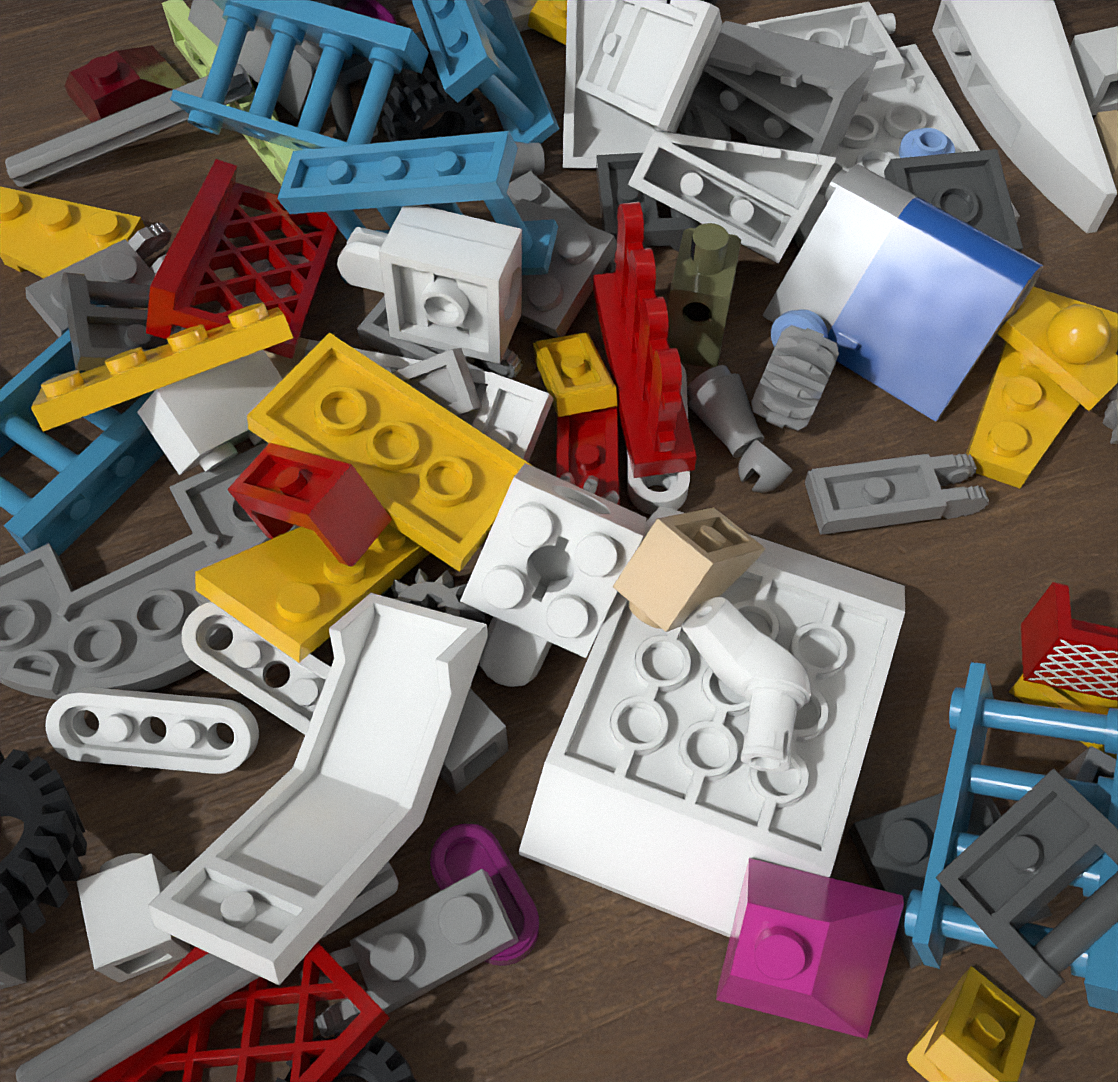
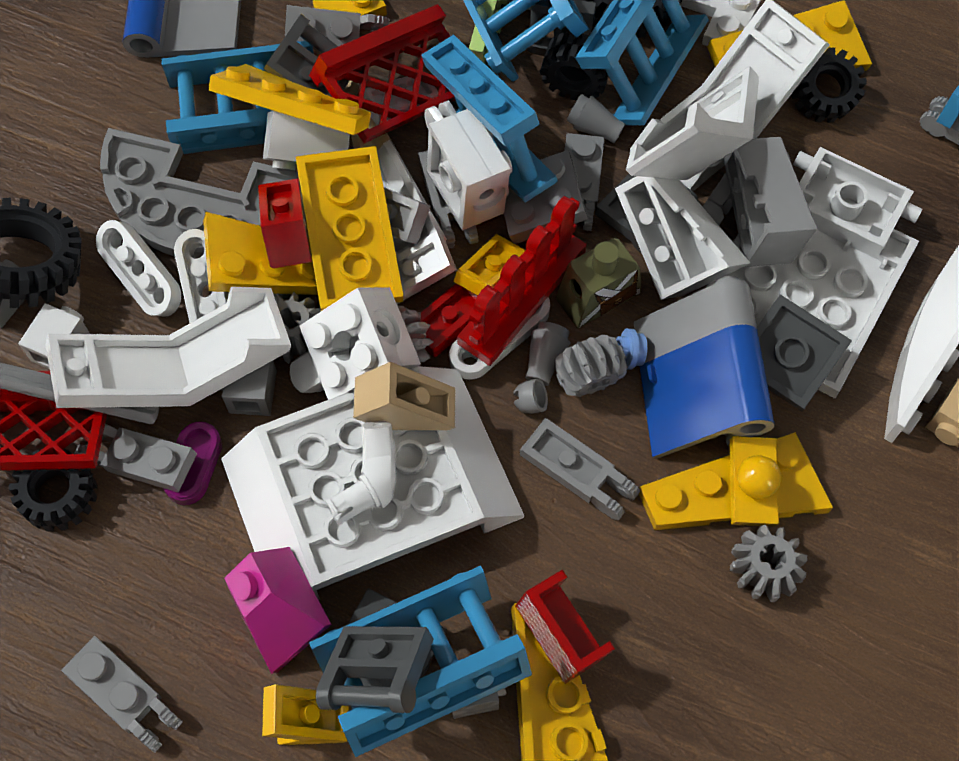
camera: 45 degrees right, 5 degrees up
(925, 142) = (830, 298): light blue plate -> none

